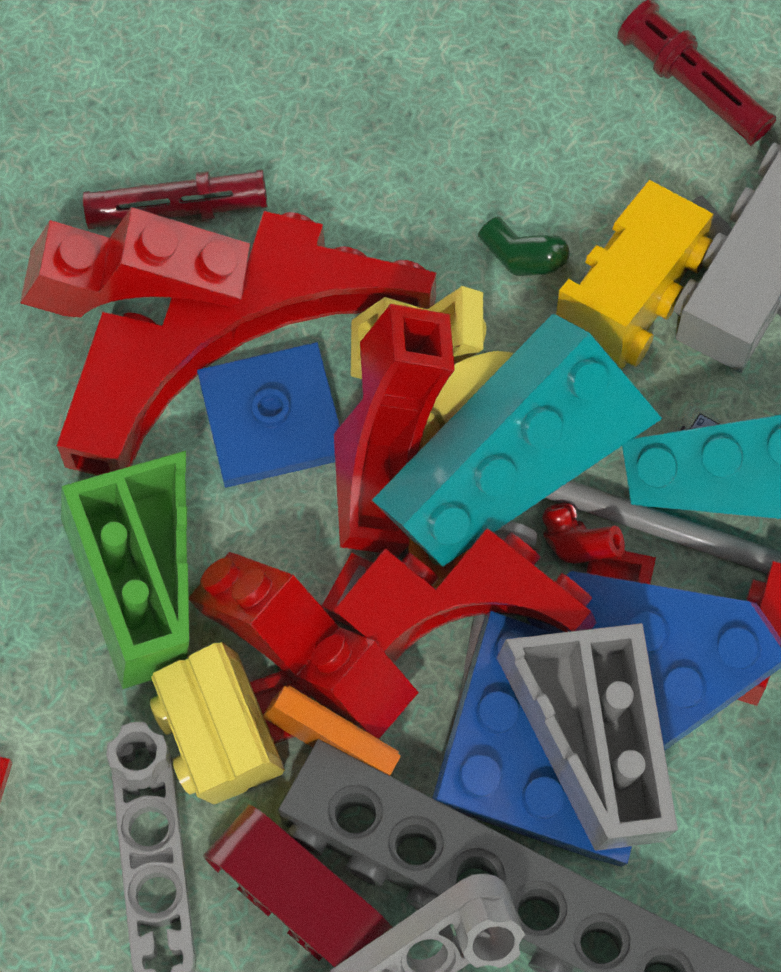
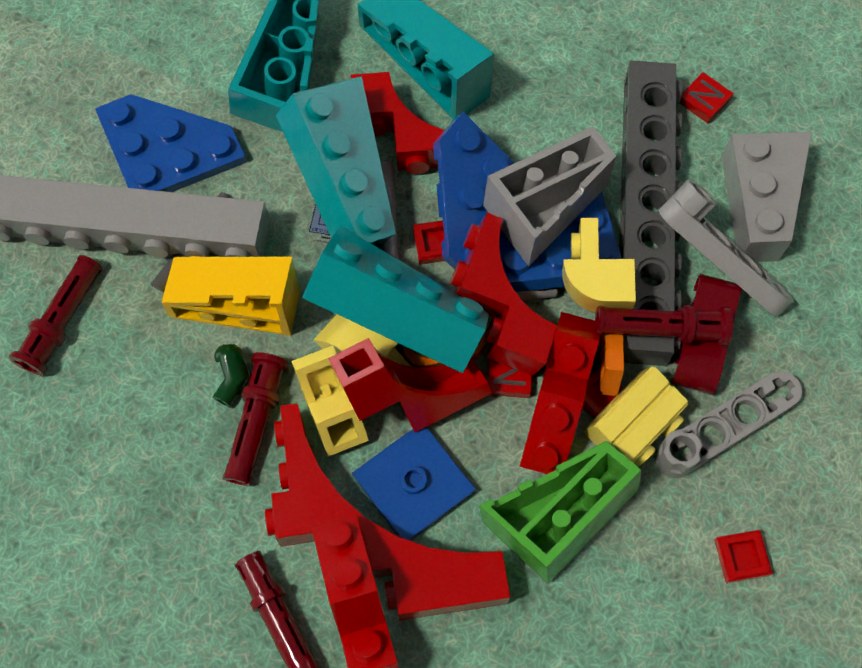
camera: 115 degrees left, 0 degrees up
(304, 829) = (683, 324): none -> dark red pin
(425, 721) = (595, 280): none -> light yellow brick
(462, 264) = (259, 399): none -> dark red pin
(574, 541) = (426, 257): red arm -> none

